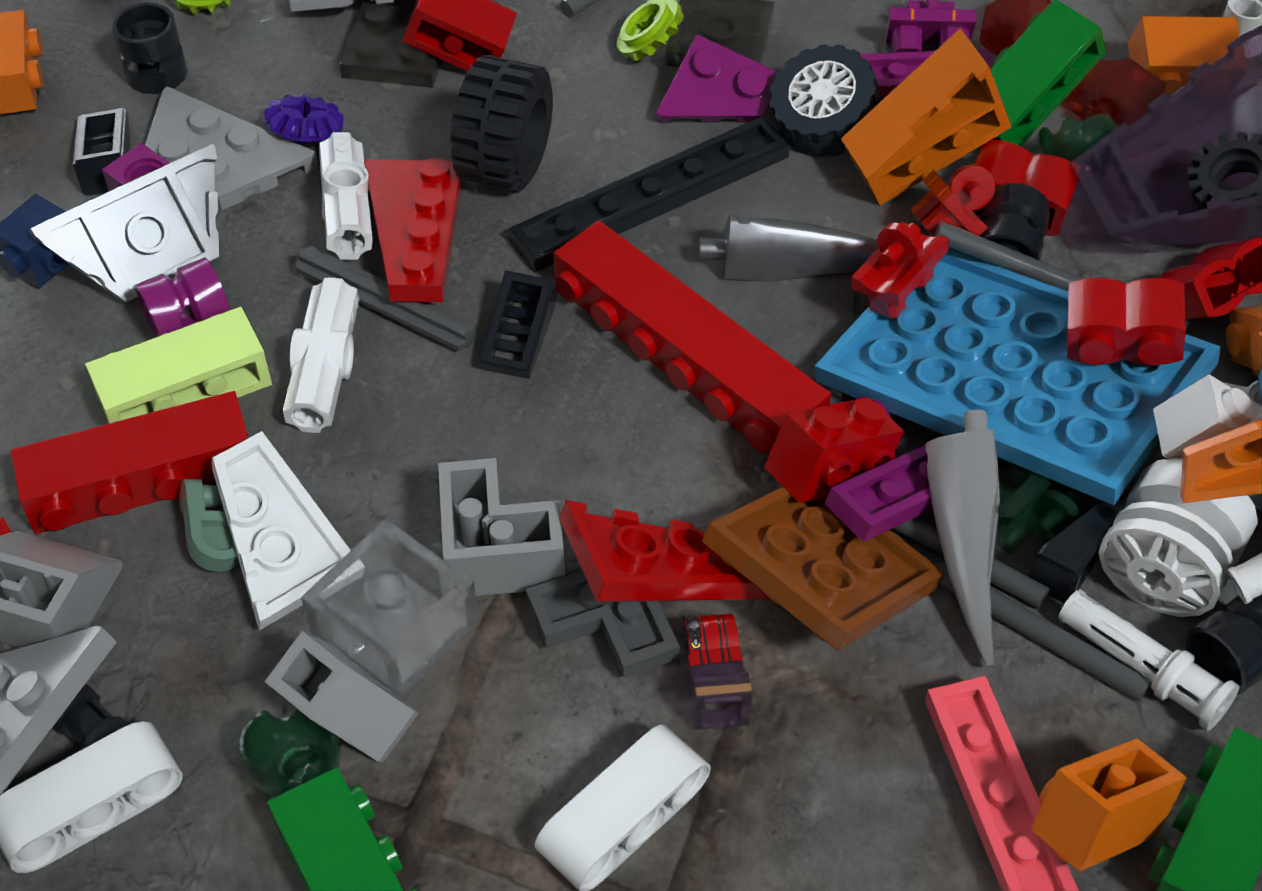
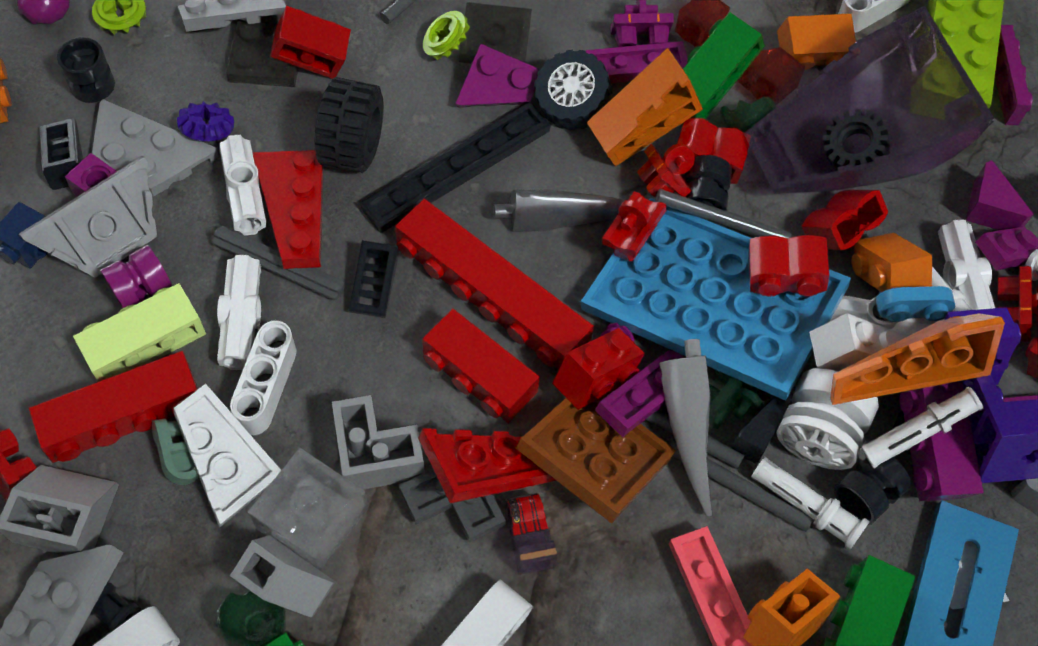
camera: 10 degrees left, 10 degrees up
(347, 436) = (262, 361): none -> white beam
(661, 443) = (479, 366): none -> red brick

